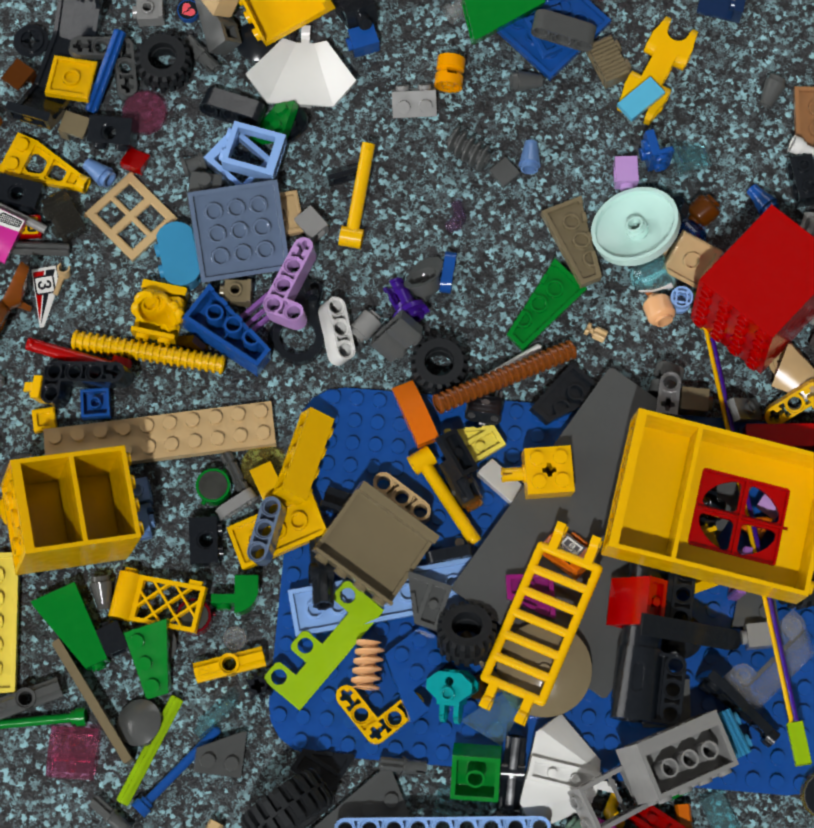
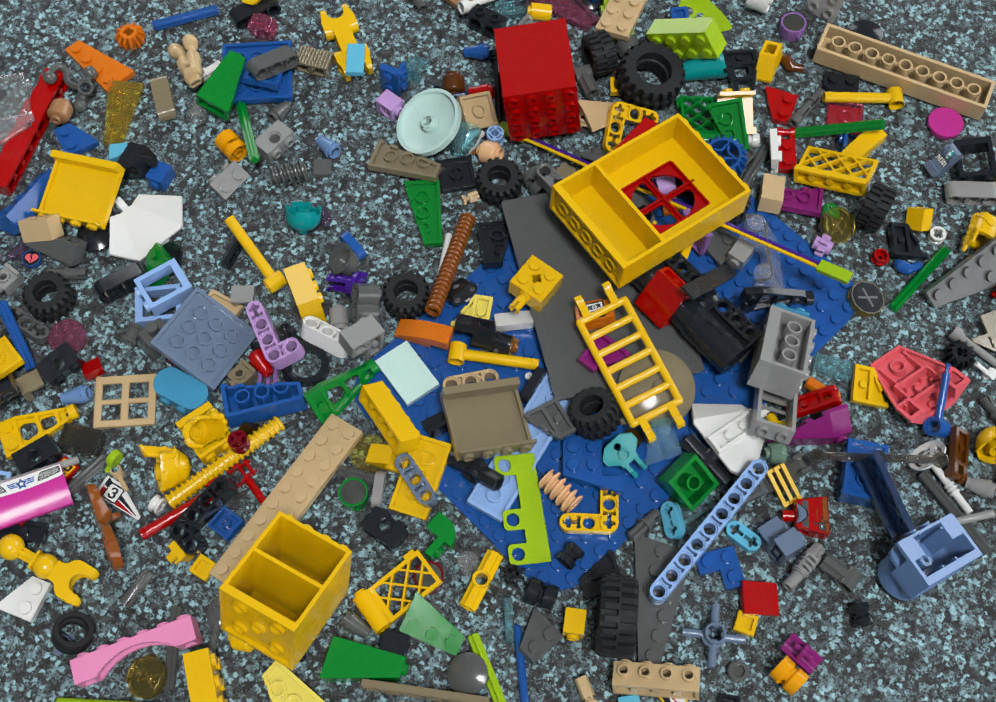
camera: 50 degrees left, 10 degrees down
(63, 331) = (157, 504): none -> white bush
(70, 258) = (114, 458): none -> lime piece
(102, 313) = (170, 467): none -> yellow head
(150, 384) = (247, 480): none -> red piece
(170, 343) = (238, 437): none -> dark red wheel
(258, 296) = (259, 362): none -> red cone
(258, 778) = (574, 624): none -> yellow brick
(260, 727) = (541, 594): none -> black wheel
(268, 384) = (317, 395): none -> green plate
(315, 723) = (570, 555): none -> black wheel
(358, 364) = (363, 337): none -> light grey brick
(361, 273) = (305, 291): none -> yellow wedge
(364, 432) = (407, 373): none -> light aqua tile
(430, 787) = (672, 520): none -> medium azure beam
(436, 201) = (303, 216): none -> teal cylinder
(474, 74) = (247, 131): none -> green axle
(500, 98) = (278, 133): none -> light grey brick
(609, 298) = (457, 175): none -> black tile
(633, 327) = (498, 169): none -> black tyre
(719, 240) = (482, 88): none -> red cone

